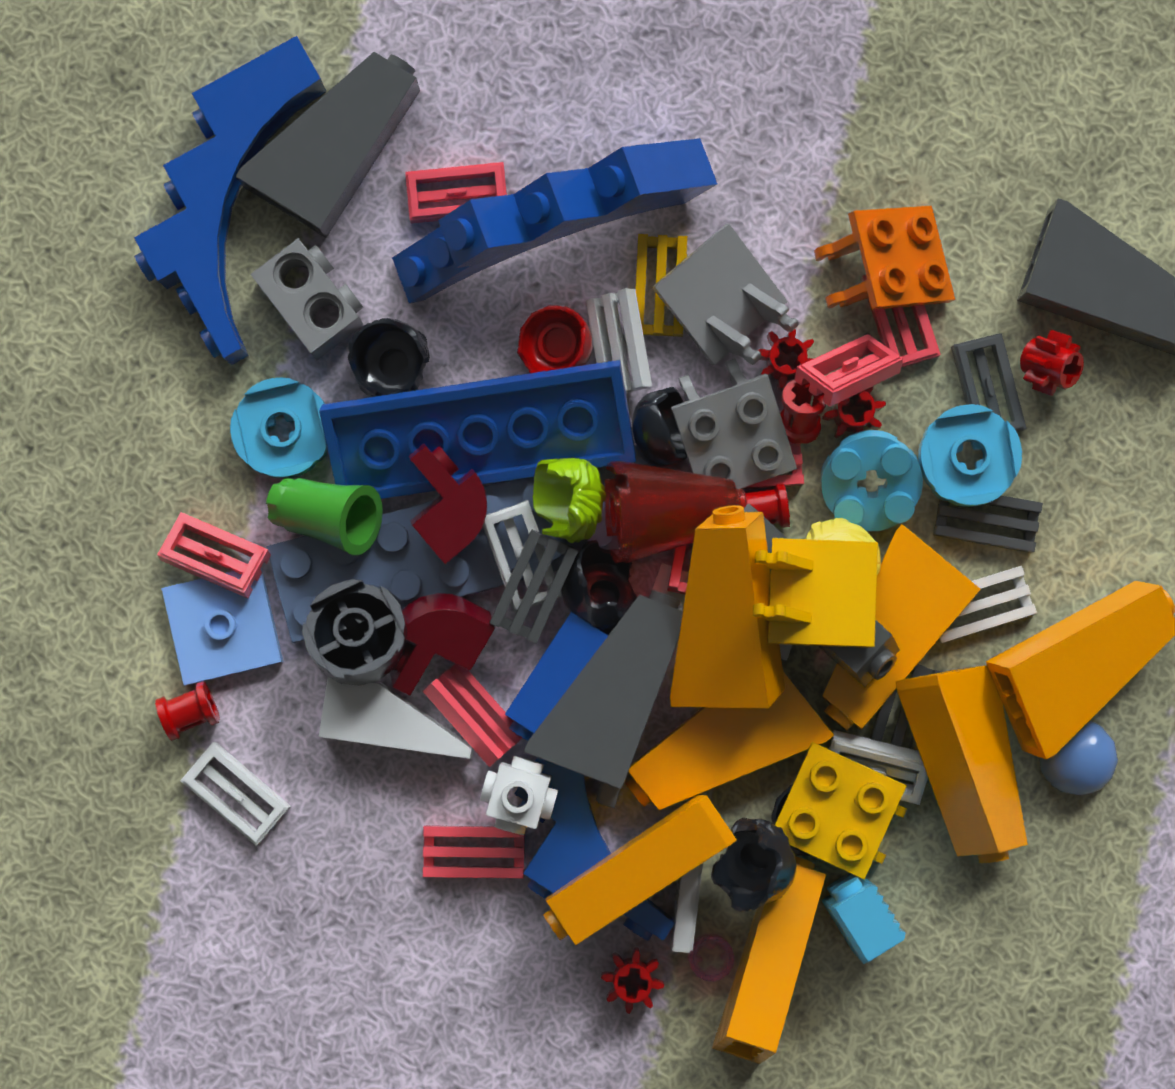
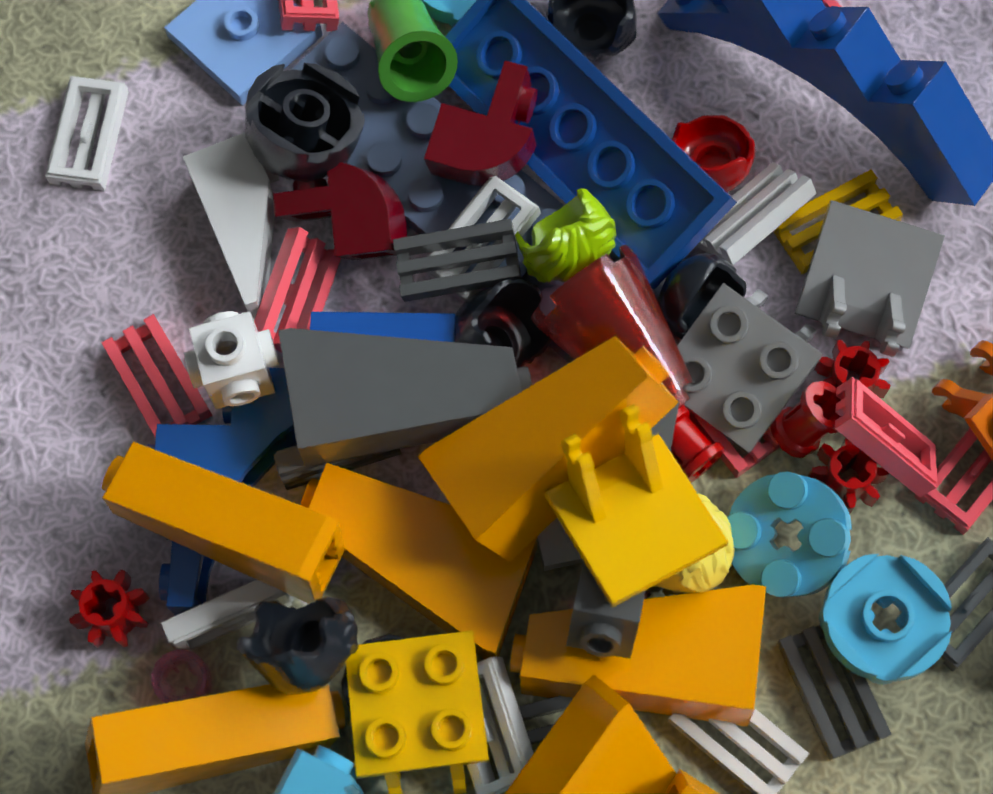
camera: 55 degrees right, 15 degrees down
(187, 711) = (140, 42): red bush -> none

